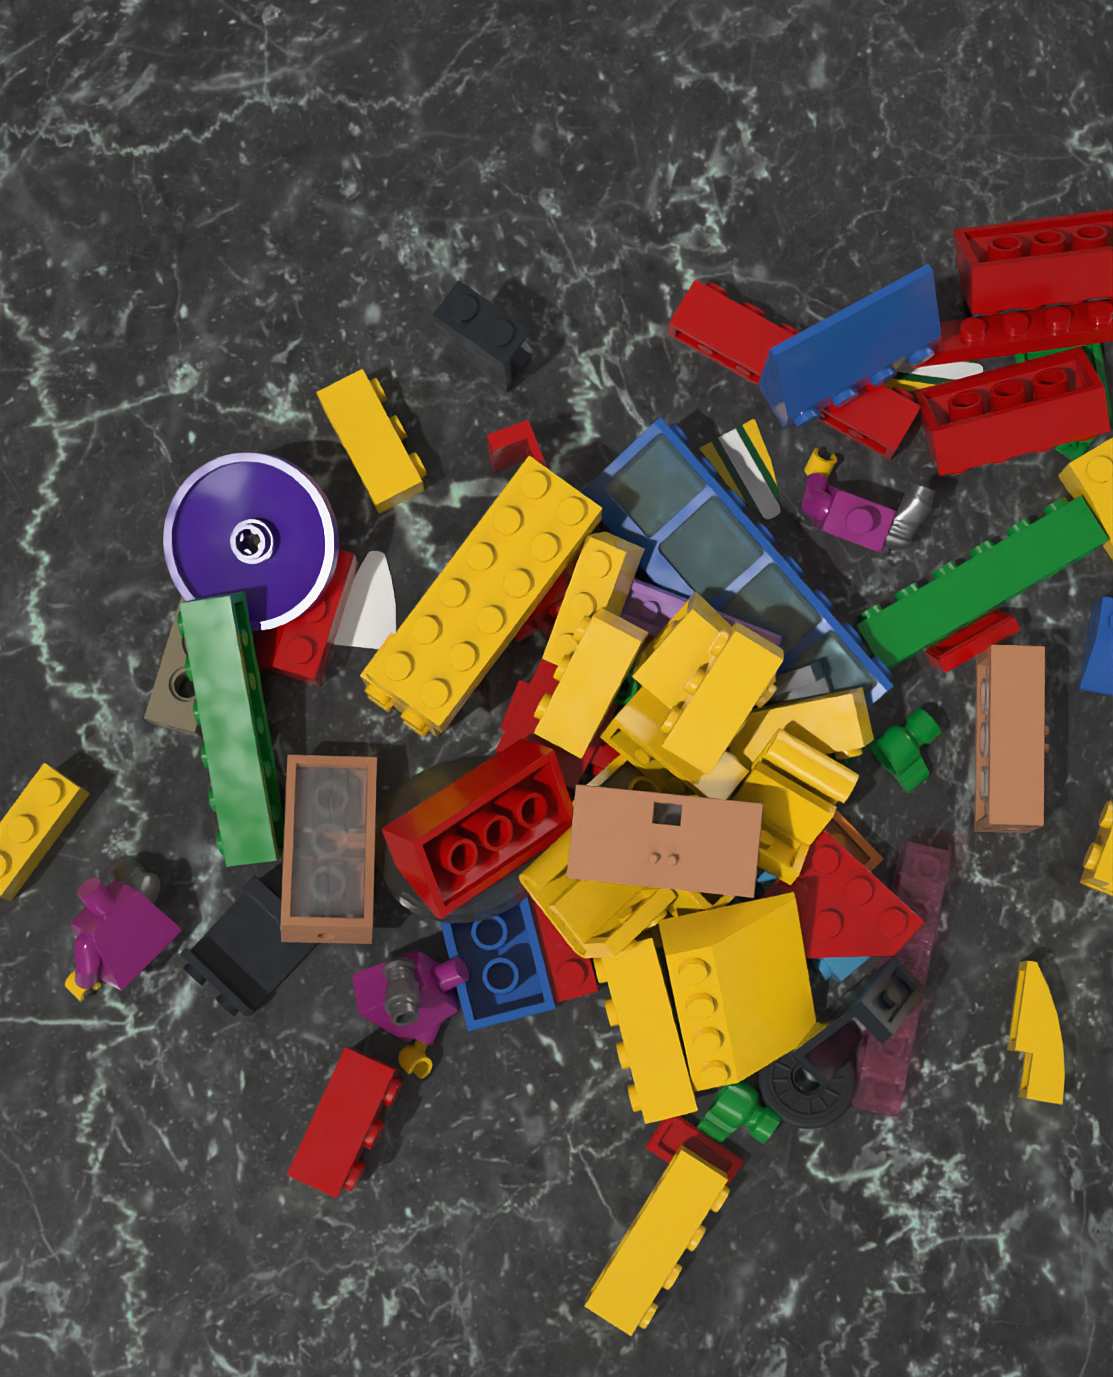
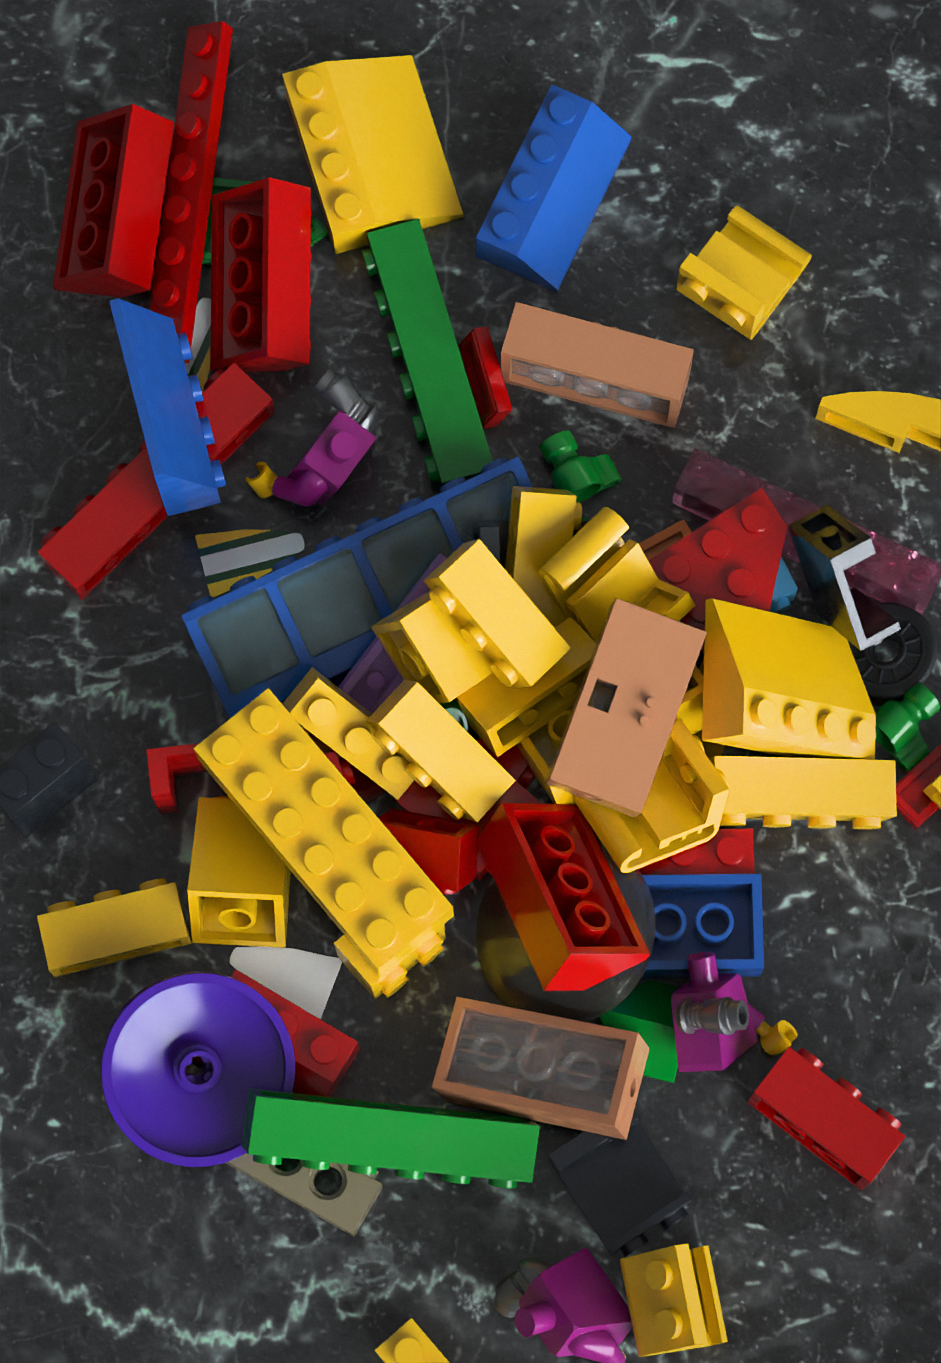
camera: 75 degrees left, 5 degrees down
(146, 1020) = (673, 1300): none -> yellow piece
(398, 933) = (650, 1014): none -> green slope
(427, 530) = (235, 880): none -> yellow slope
(505, 699) = (438, 845): none -> red brick

